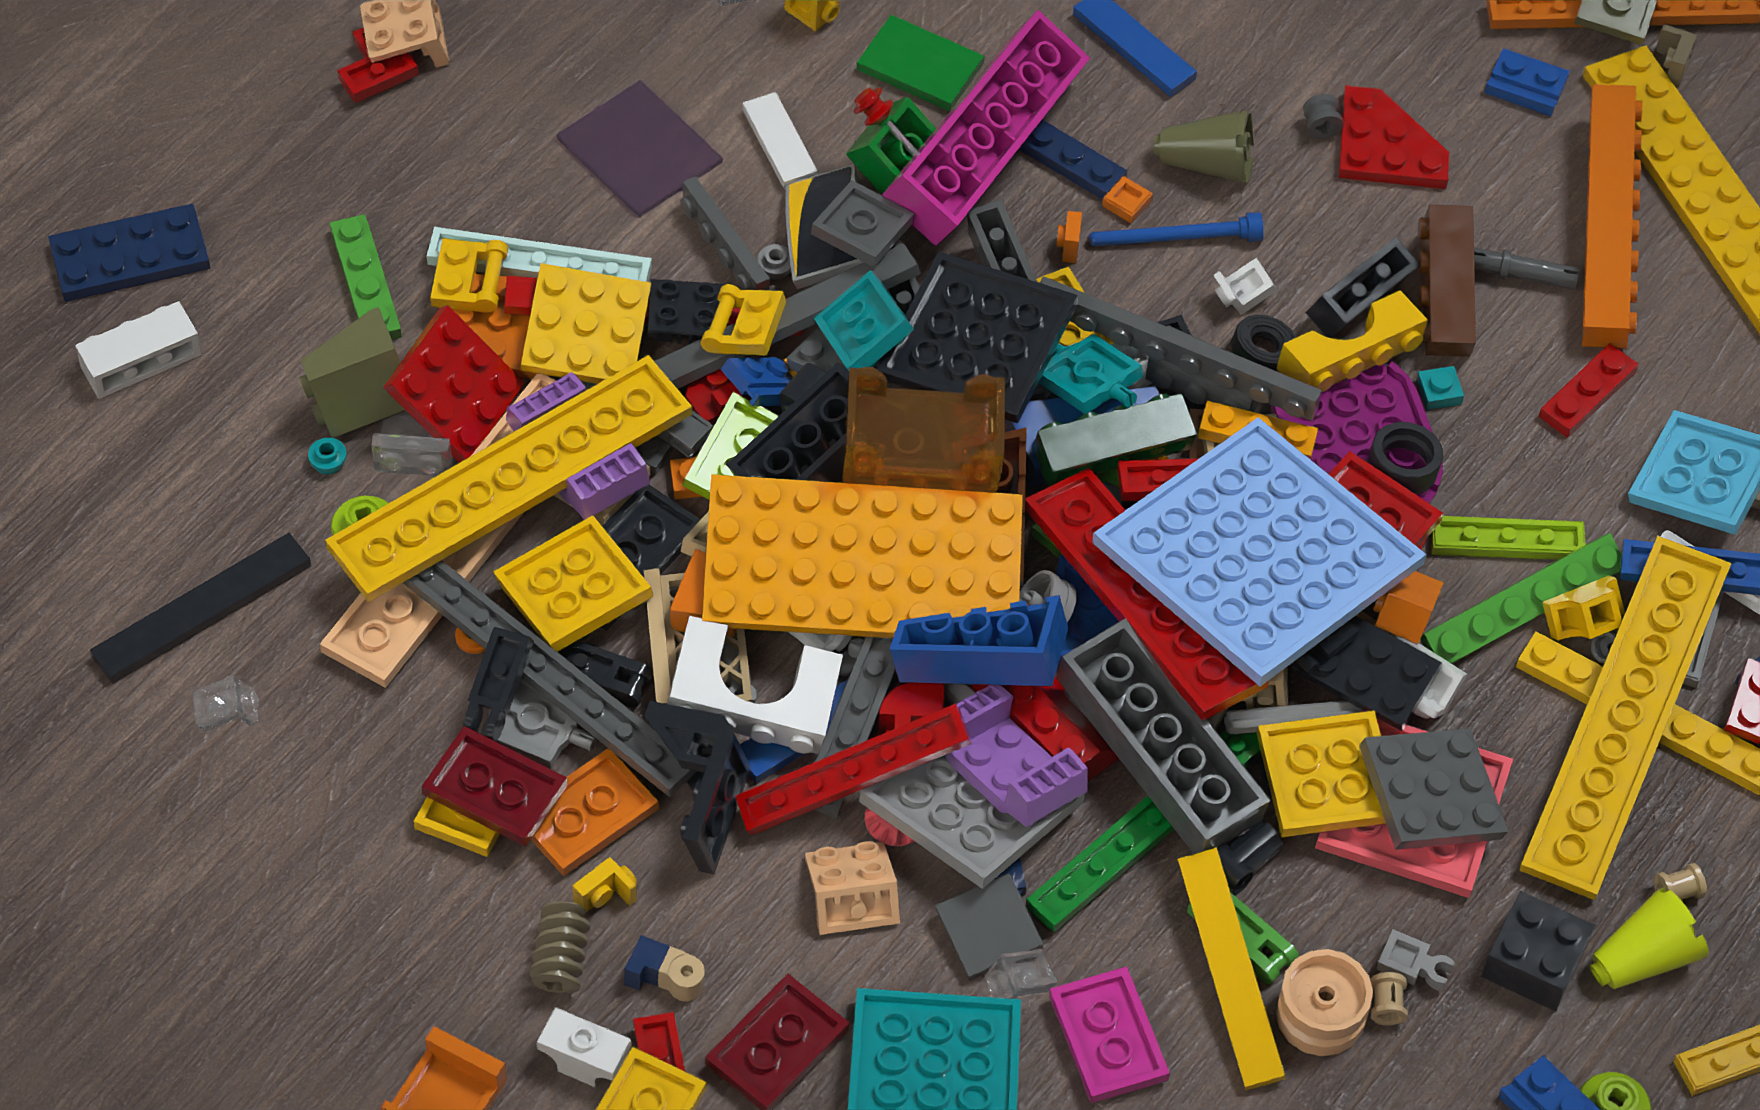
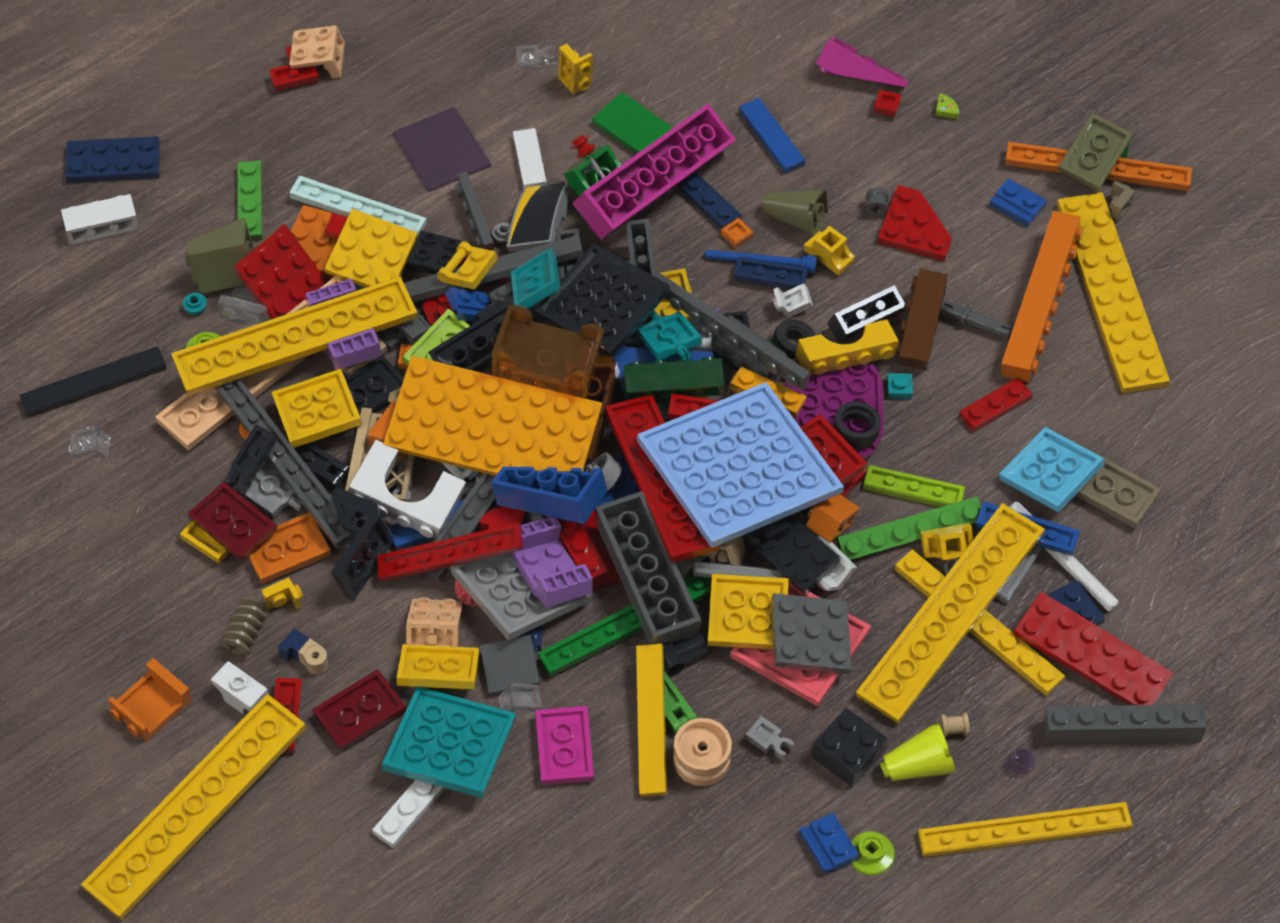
camera: 15 degrees right, 0 degrees up
(457, 272) = (303, 206): yellow plate -> none
(862, 223) = (555, 218): dark grey plate -> none
(881, 951) = (438, 666): none -> yellow plate
(1069, 236) = (692, 249): orange plate -> none
(1197, 252) = (769, 273): none -> dark blue plate
(1279, 199) = (830, 250): none -> yellow brick
(1388, 998) = (748, 763): tan bush -> none

